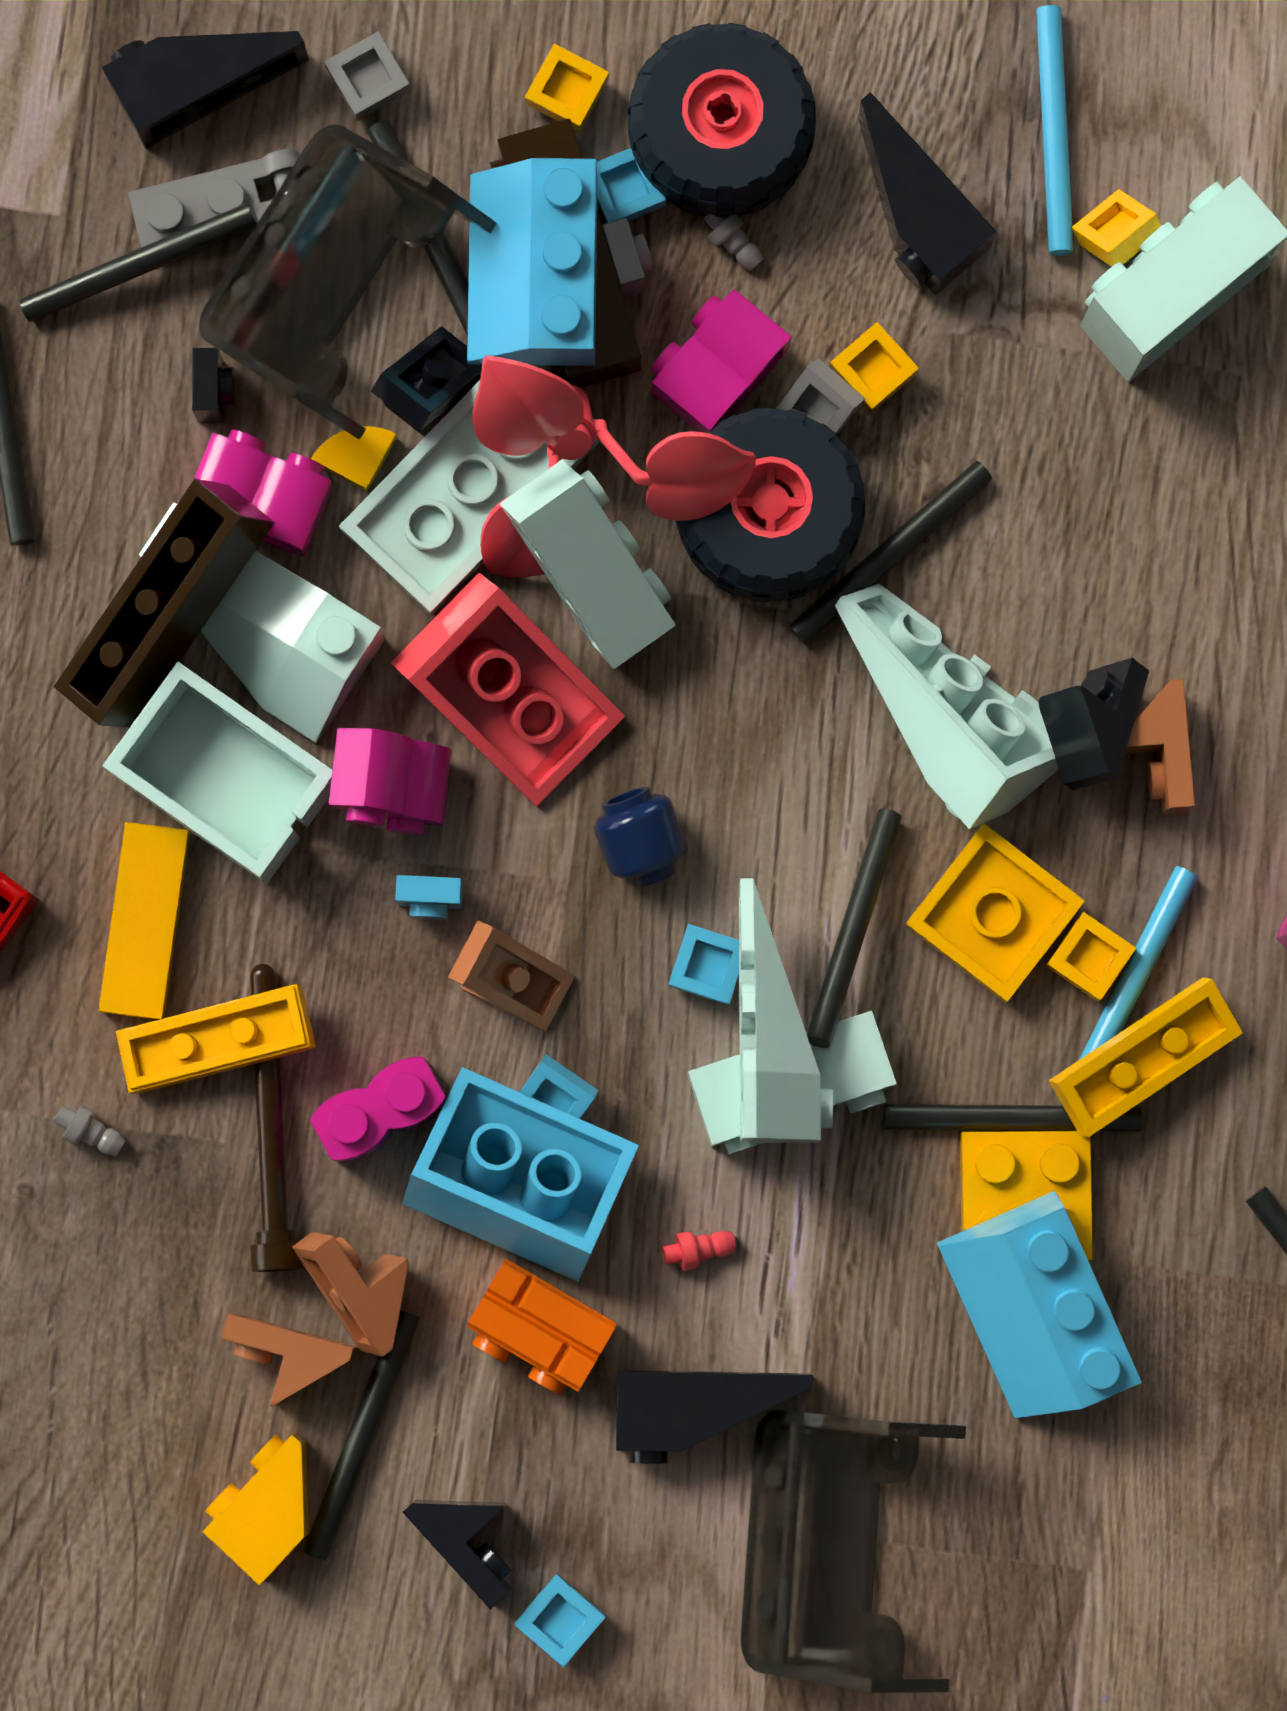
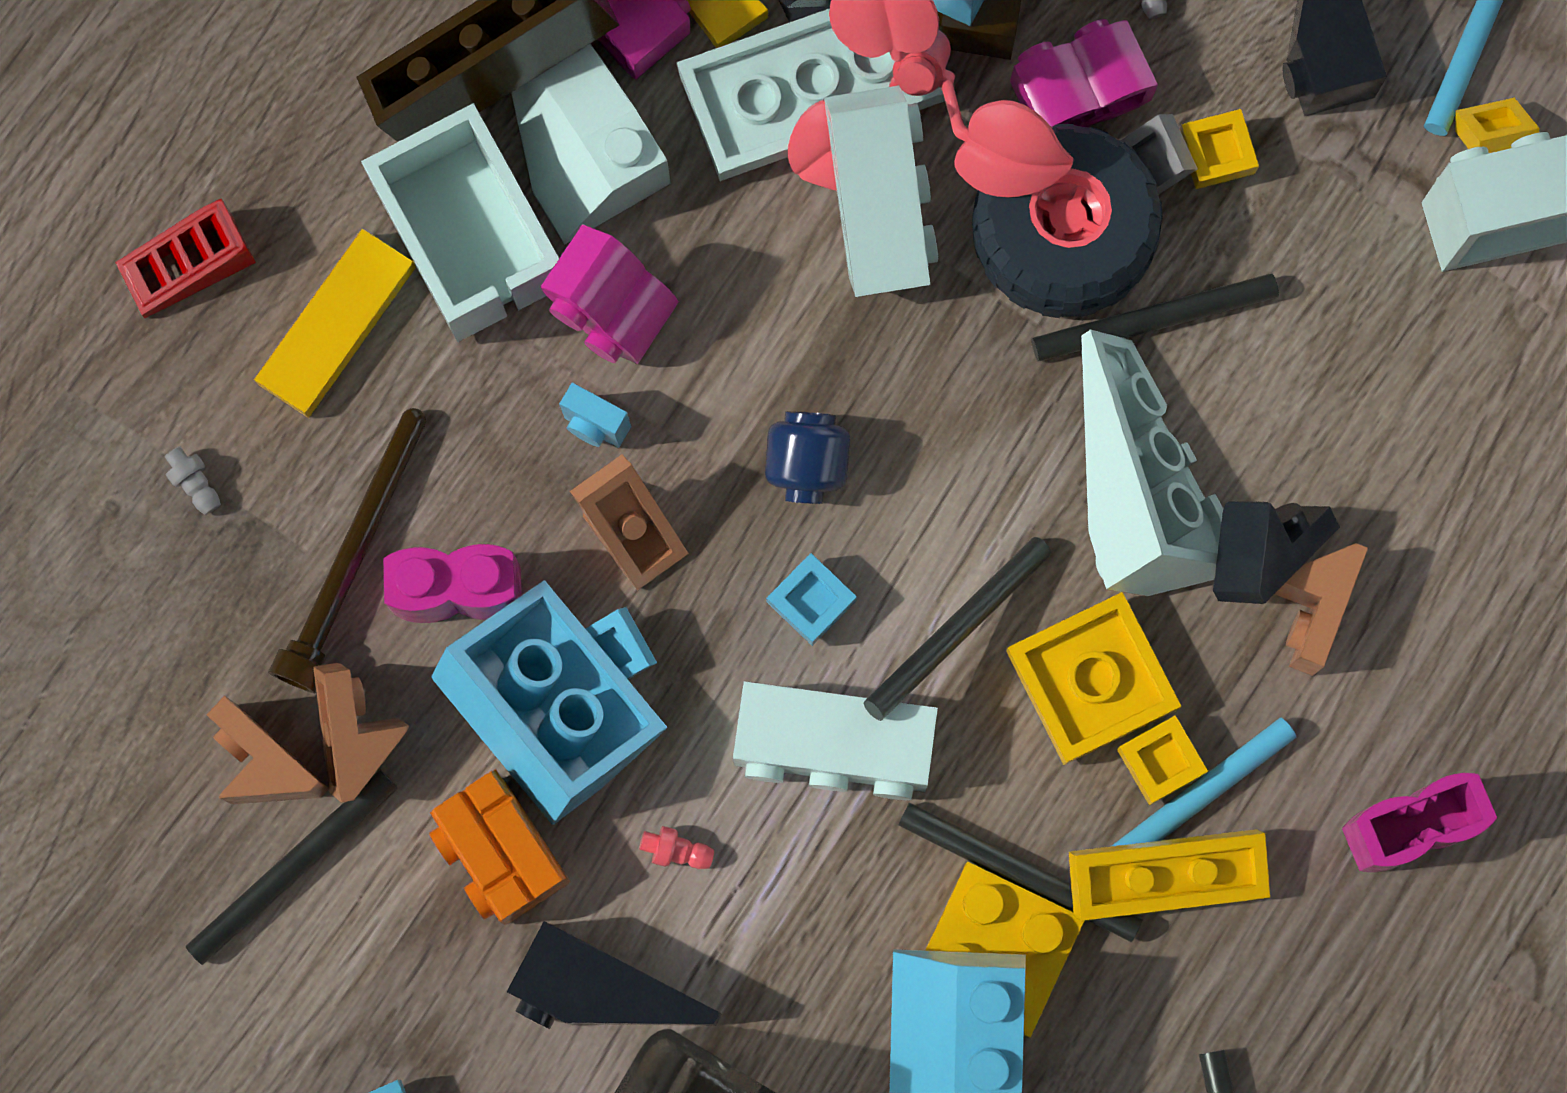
camera: 30 degrees right, 5 degrees down
(215, 1039) = (342, 453): yellow tile -> none
(269, 1514) = (169, 895): yellow slope -> none
(449, 1530) = (321, 994): black slope -> none
(508, 688) = (755, 273): coral slope -> none
(777, 1066) = (821, 712): light aqua wedge -> none

